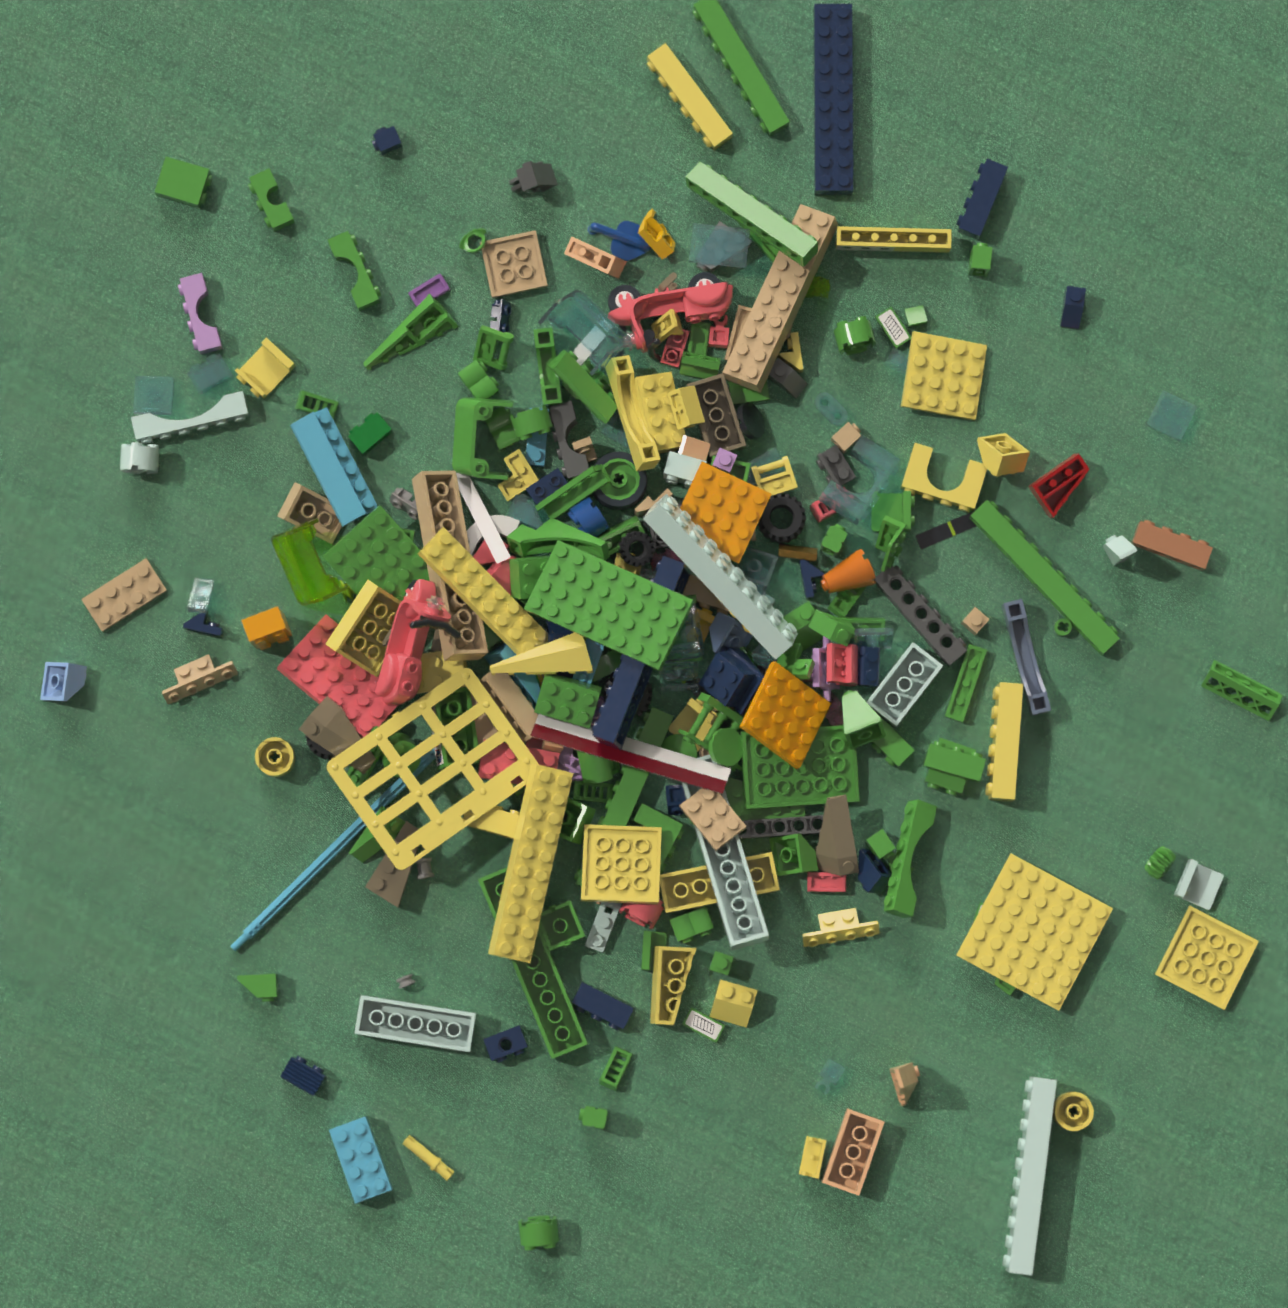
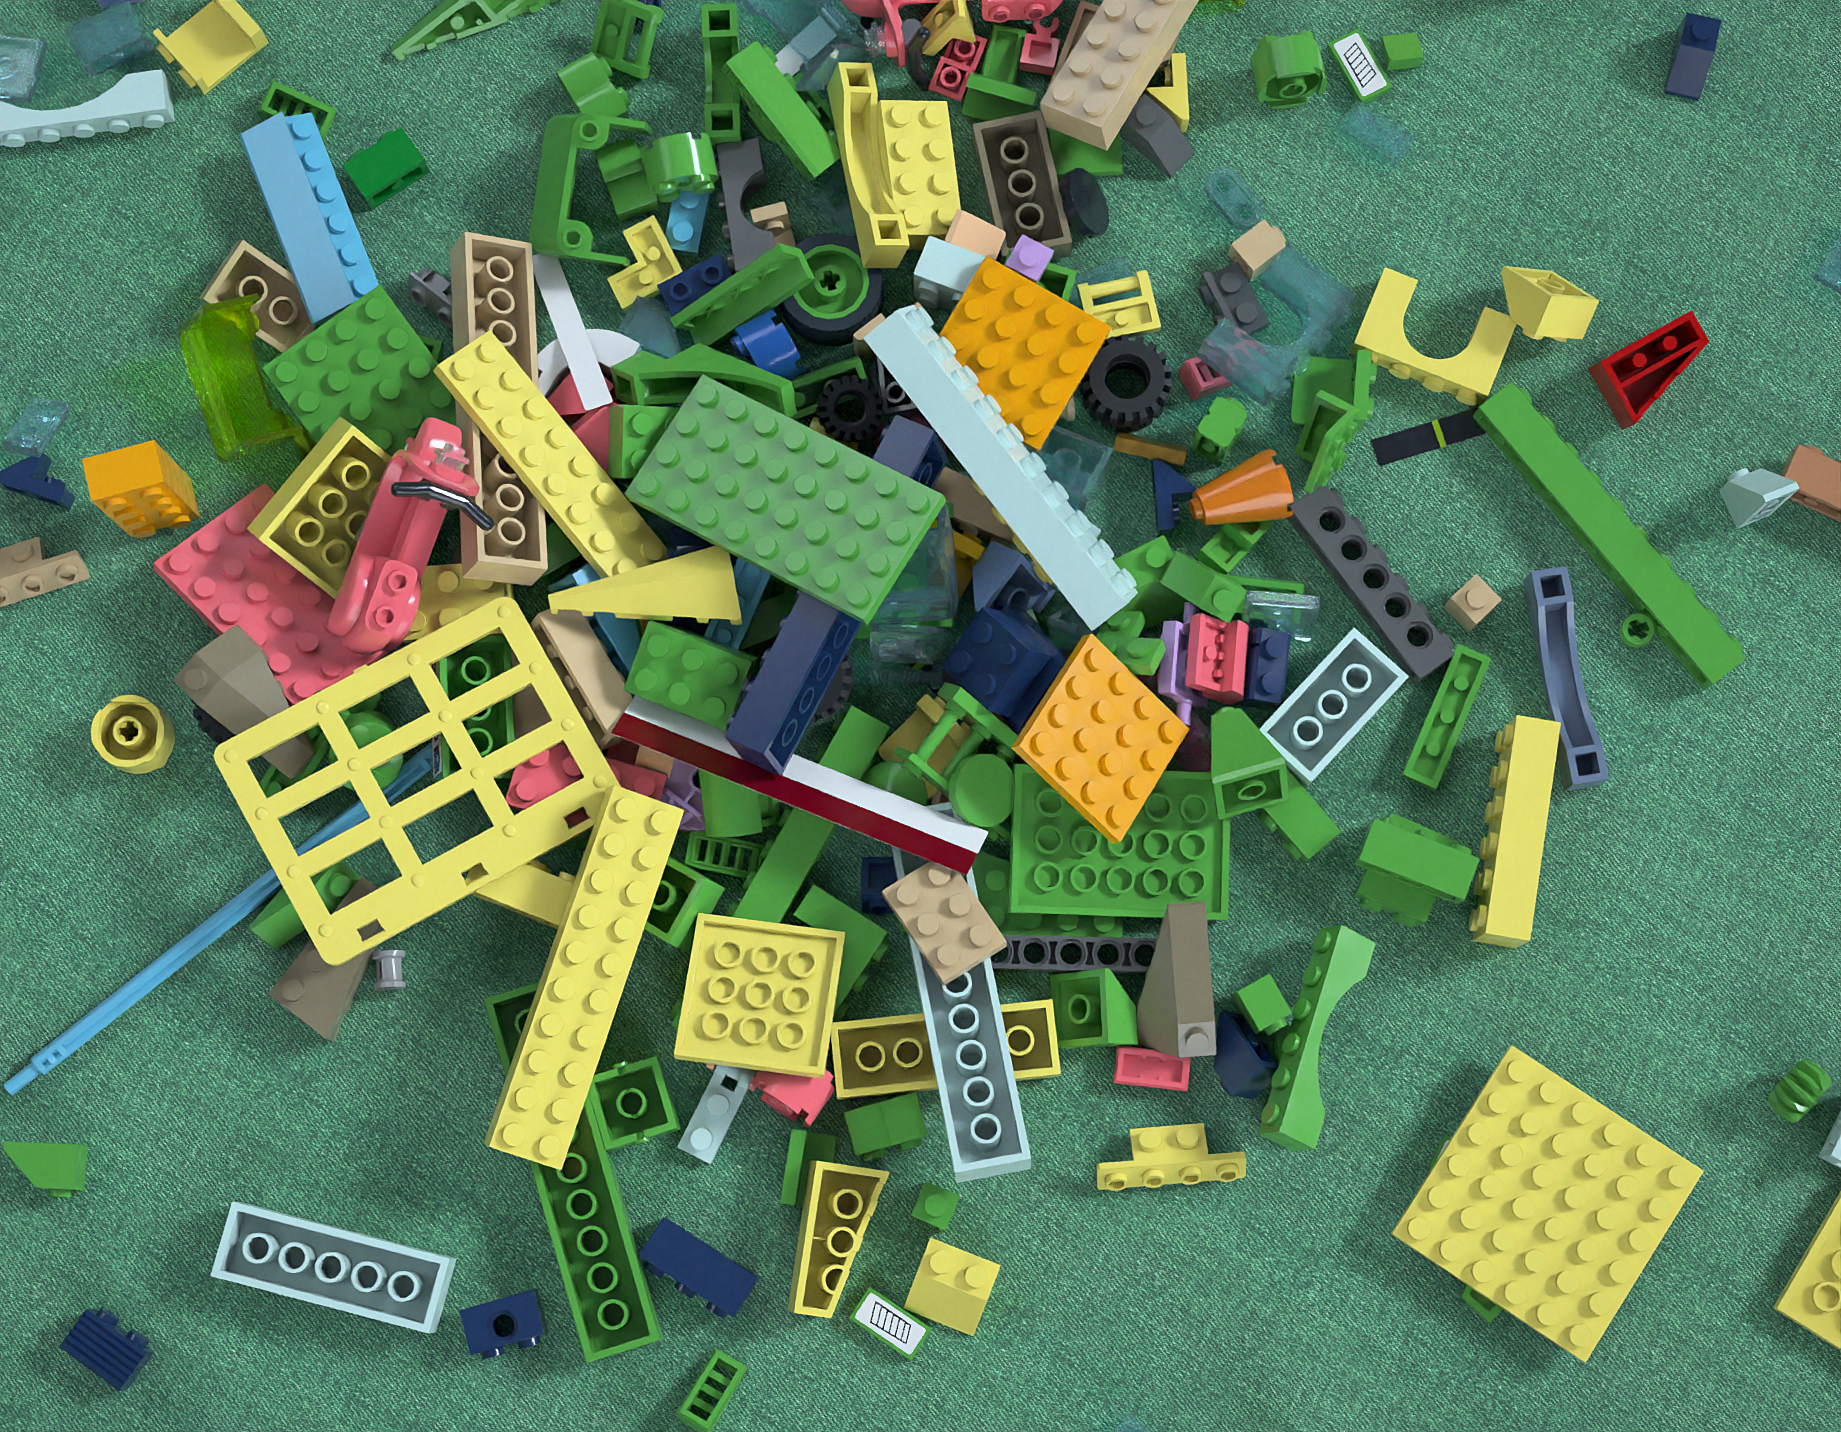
camera: 10 degrees right, 5 degrees down
(405, 981) = (327, 1183): light grey bush -> none
(686, 407) = (966, 162): light yellow hinge -> none
(943, 375) = (1446, 157): light yellow plate -> none

